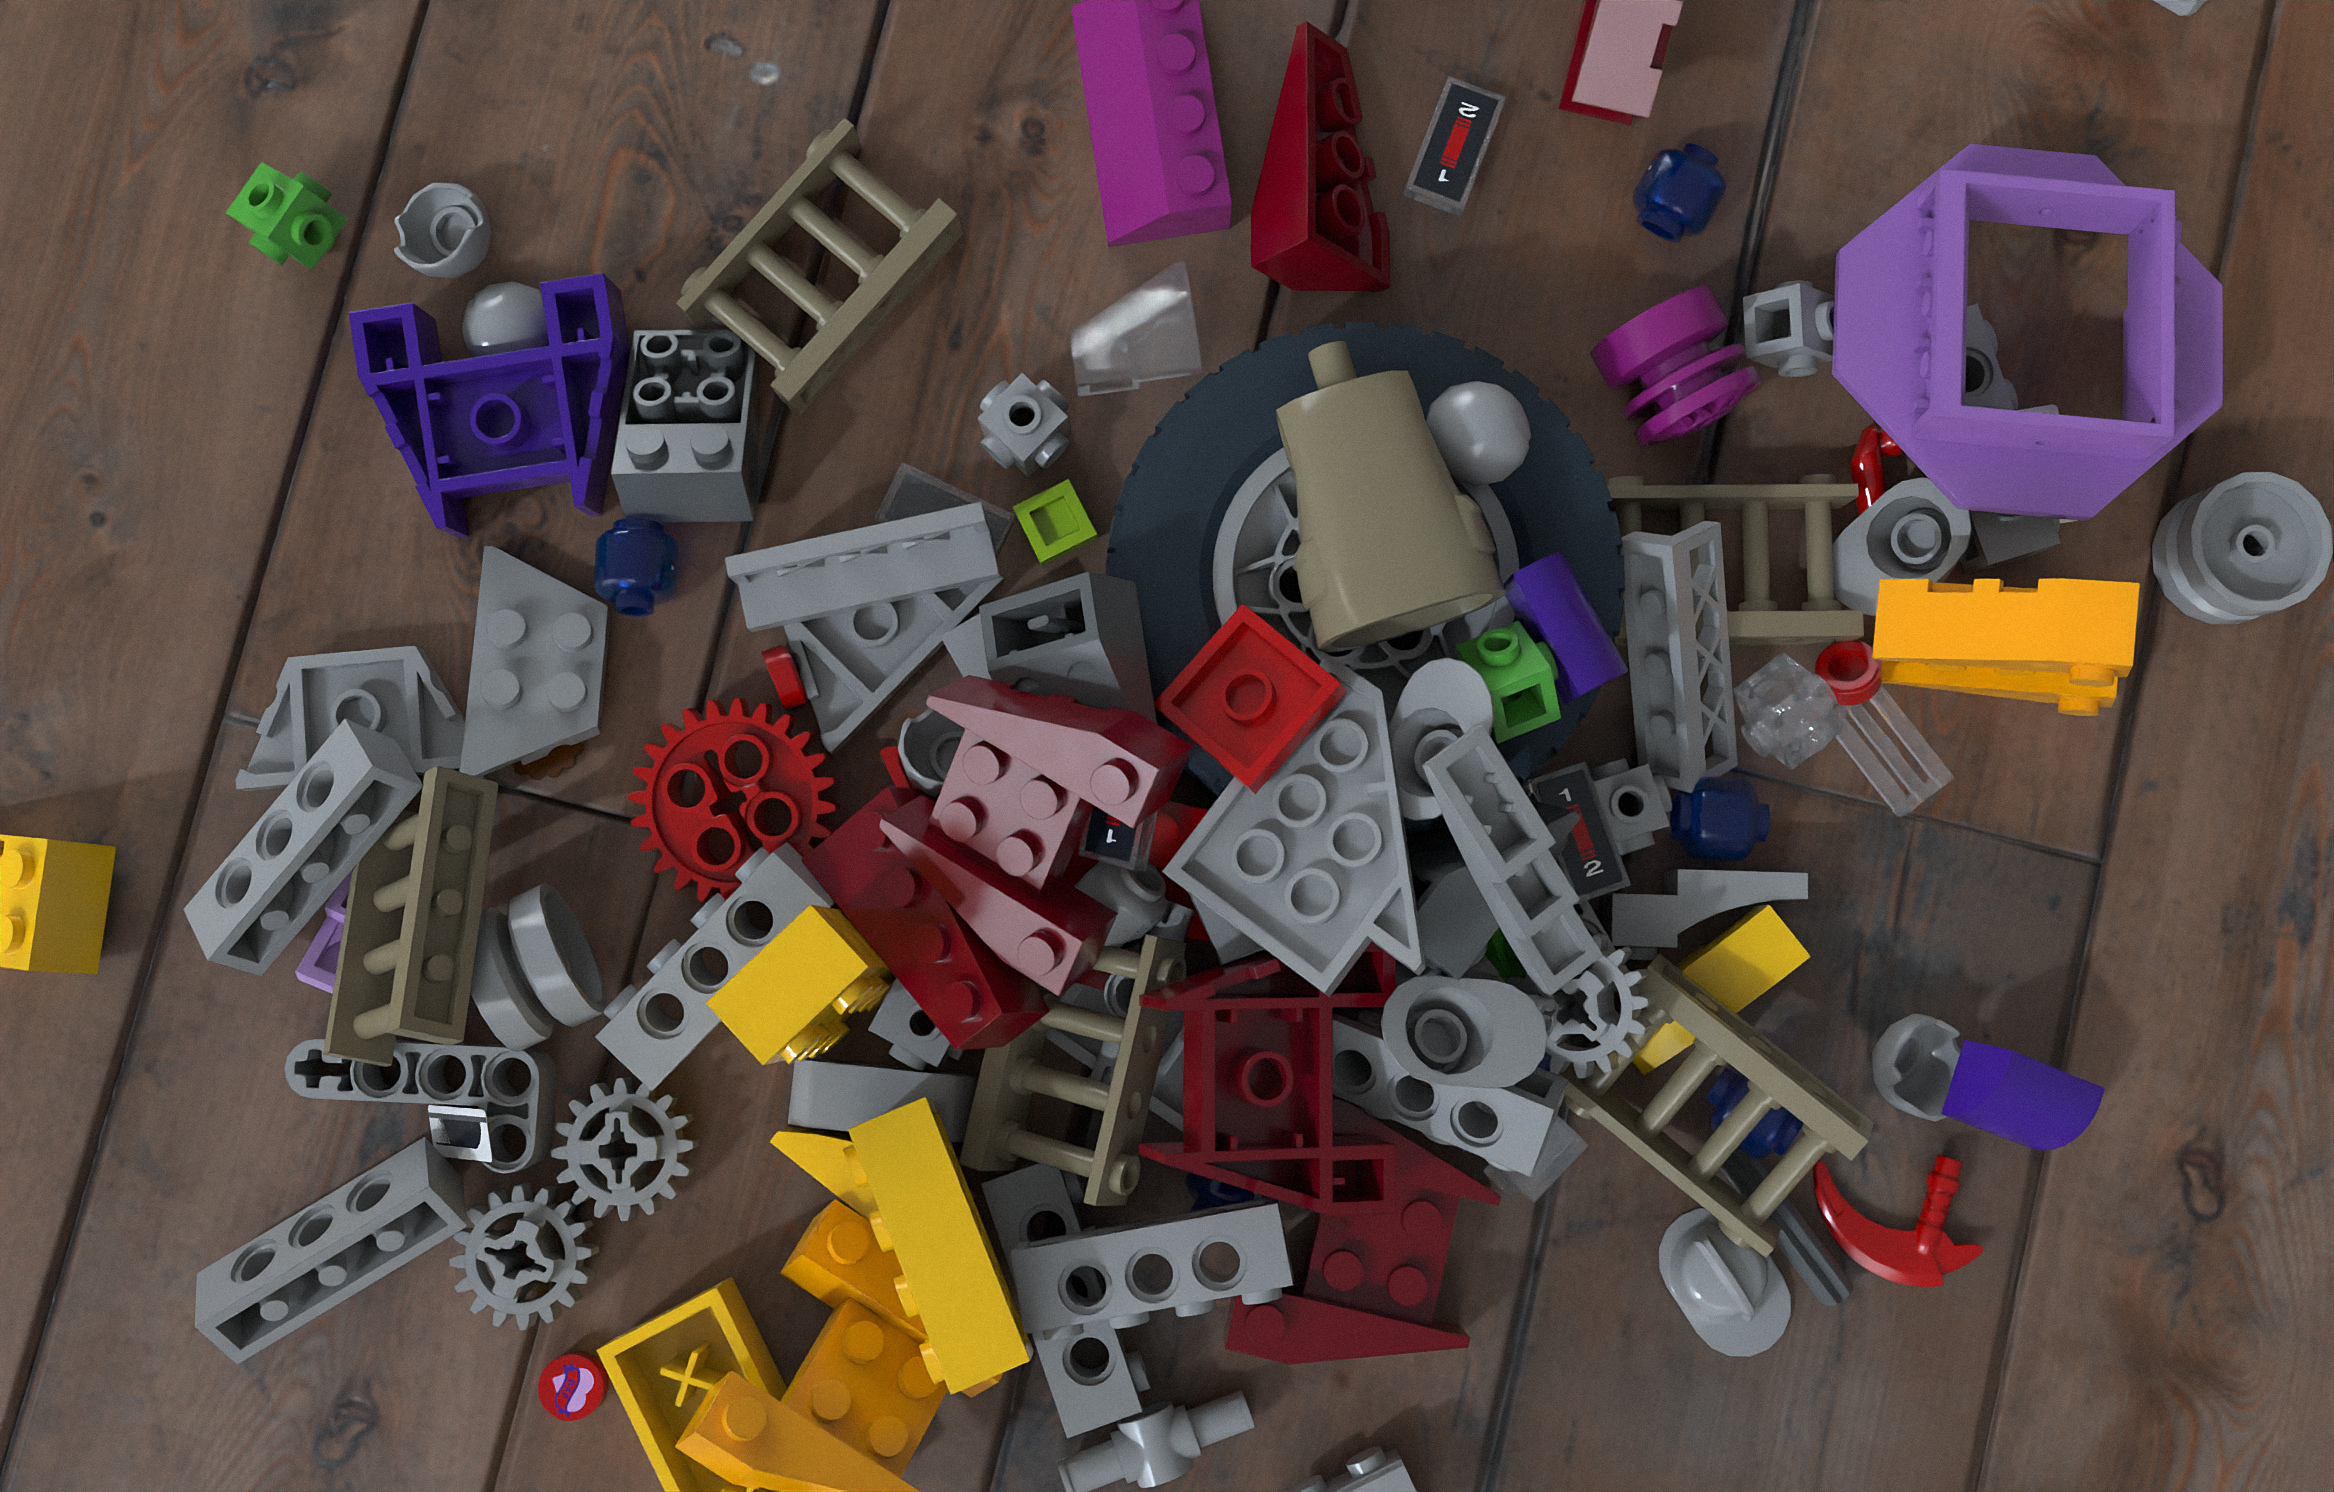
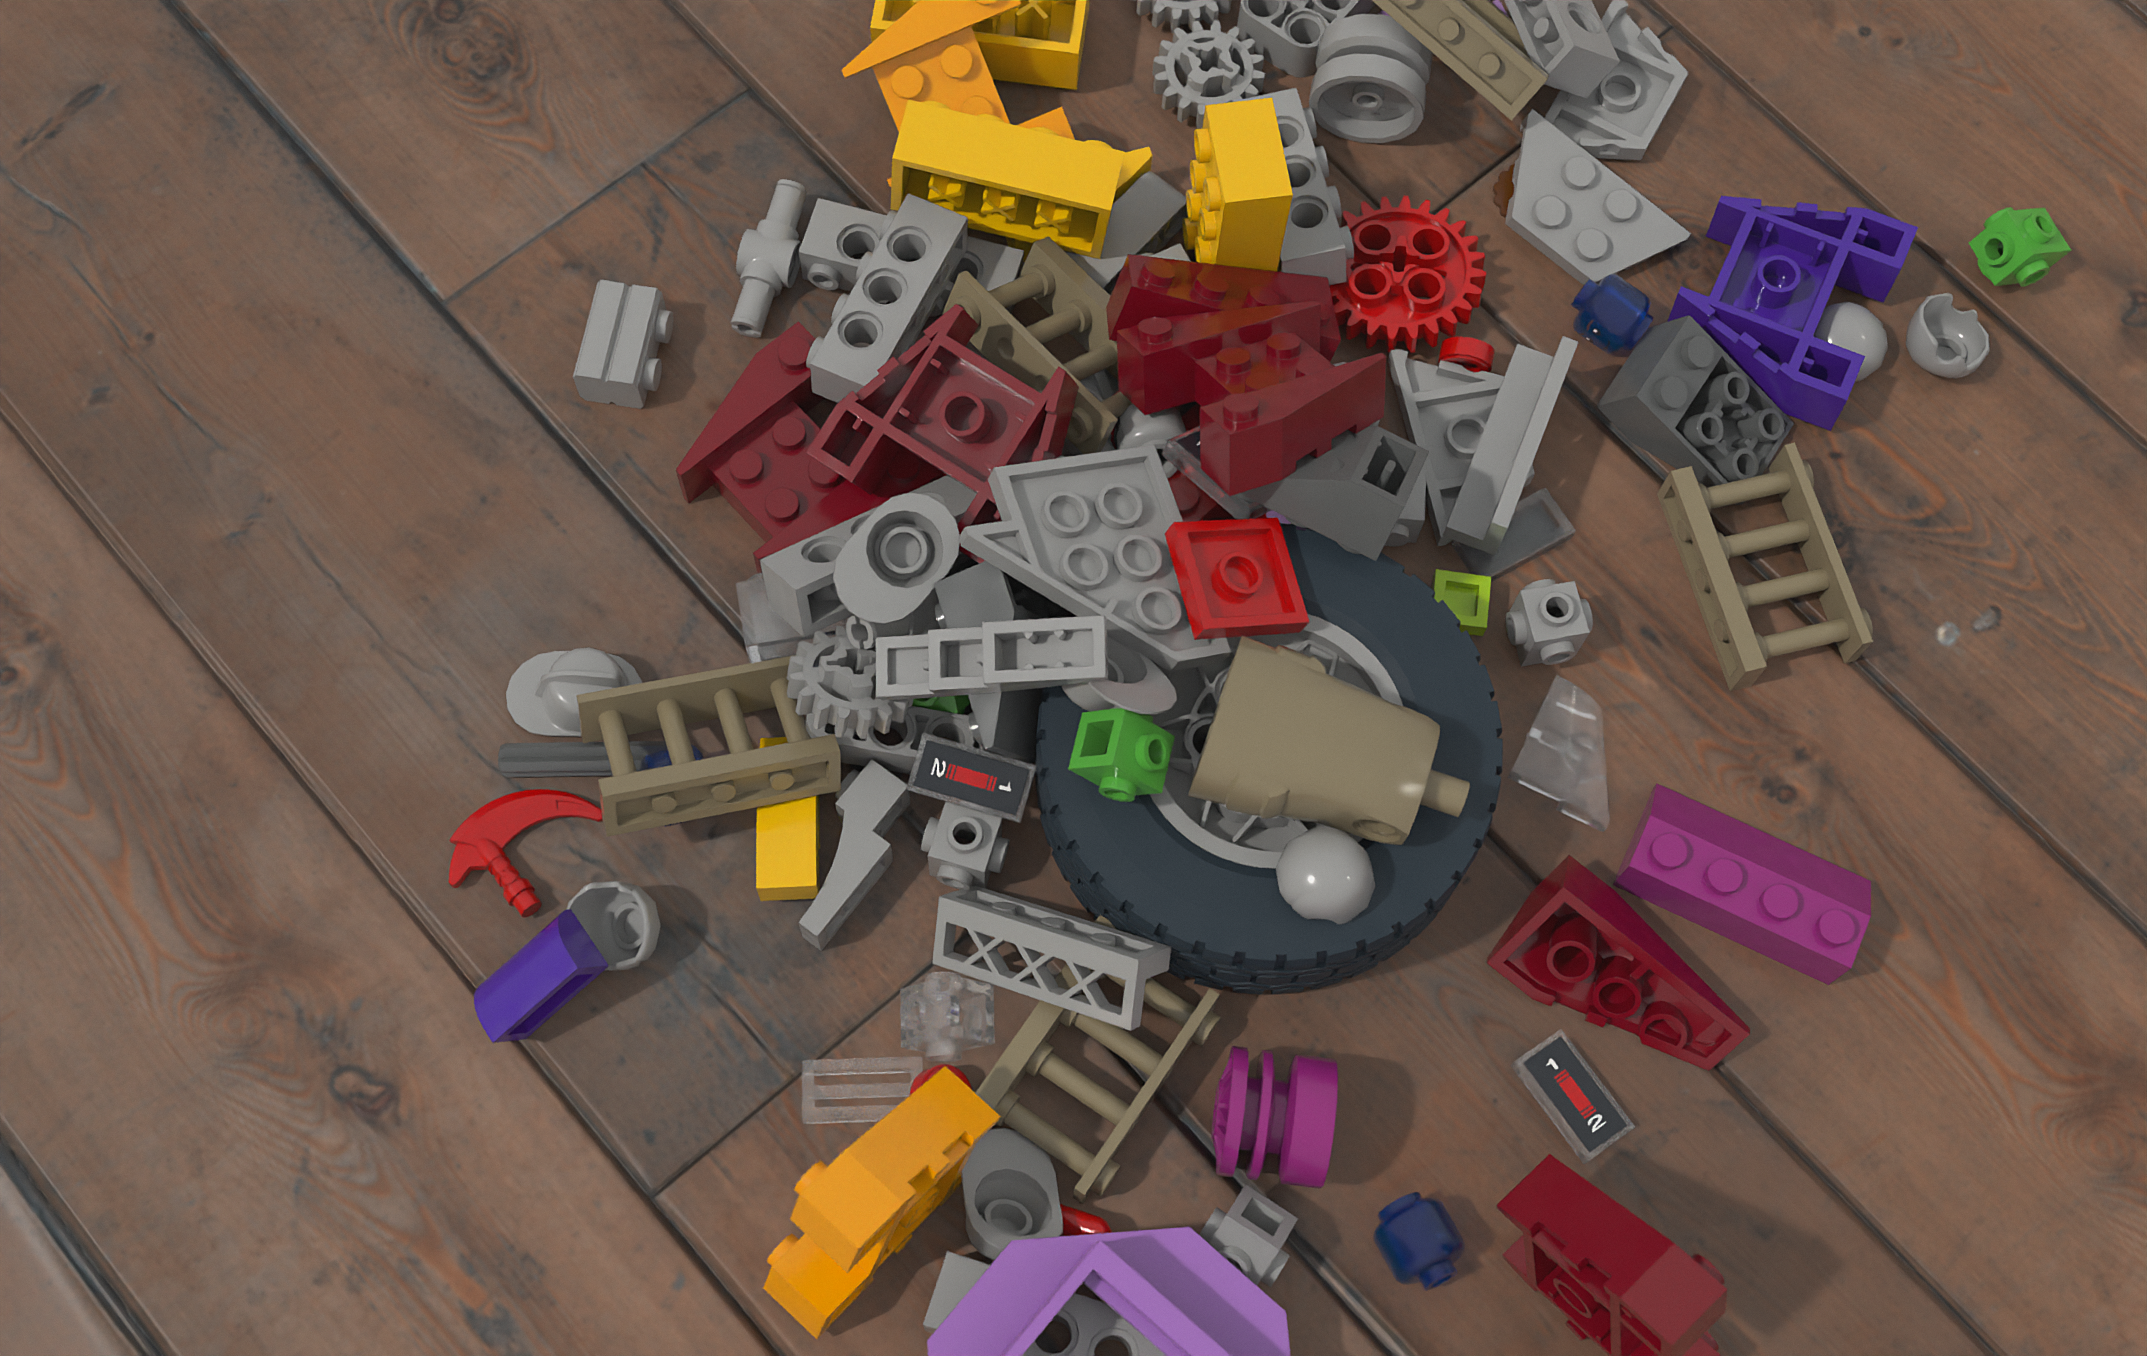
camera: 120 degrees right, 15 degrees down
(1558, 612) = (1133, 830): dark purple brick -> none
(1719, 819) = (903, 912): clear blue head -> none

